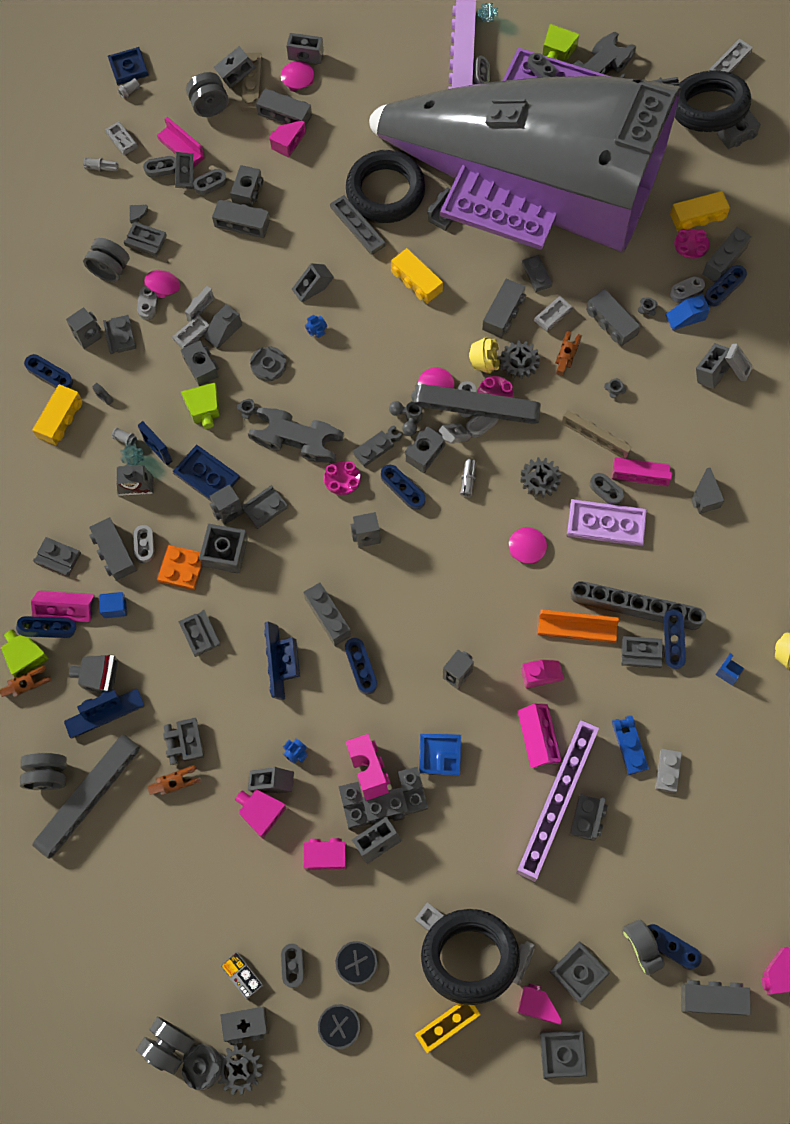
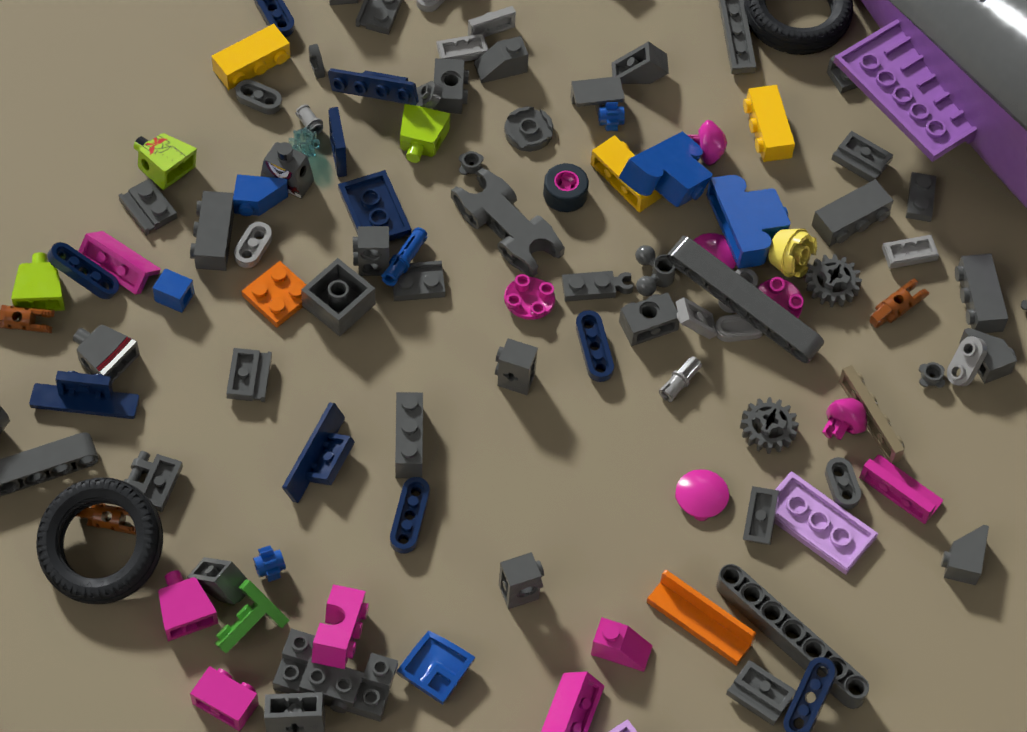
camera: 25 degrees right, 10 degrees down
(47, 518) = (165, 158): none -> lime torso
(81, 439) = (260, 97): none -> dark grey plate
(124, 507) = (258, 194): none -> blue slope
(144, 811) = (61, 513): none -> black tyre
(153, 389) = (374, 85): none -> dark blue bracket
(191, 379) = (429, 94): none -> dark grey plate
(247, 502) = (401, 261): none -> blue pin
(297, 315) = (596, 91): none -> dark grey panel
(307, 796) = (249, 616): none -> bright green bracket
(317, 384) = (565, 187): none -> black wheel
(350, 359) = (609, 162): none -> yellow brick
(379, 344) = (669, 169): none -> blue brick
(389, 309) = (711, 141): none -> dark pink piece
(444, 348) = (746, 218): none -> blue brick
(486, 267) = (862, 157): none -> dark grey plate
(573, 539) = (761, 515): none -> dark grey plate
(582, 445) = (845, 416): none -> dark pink piece
(632, 368) = (967, 362): none -> light grey plate
(640, 355) = (999, 358): none -> dark grey slope

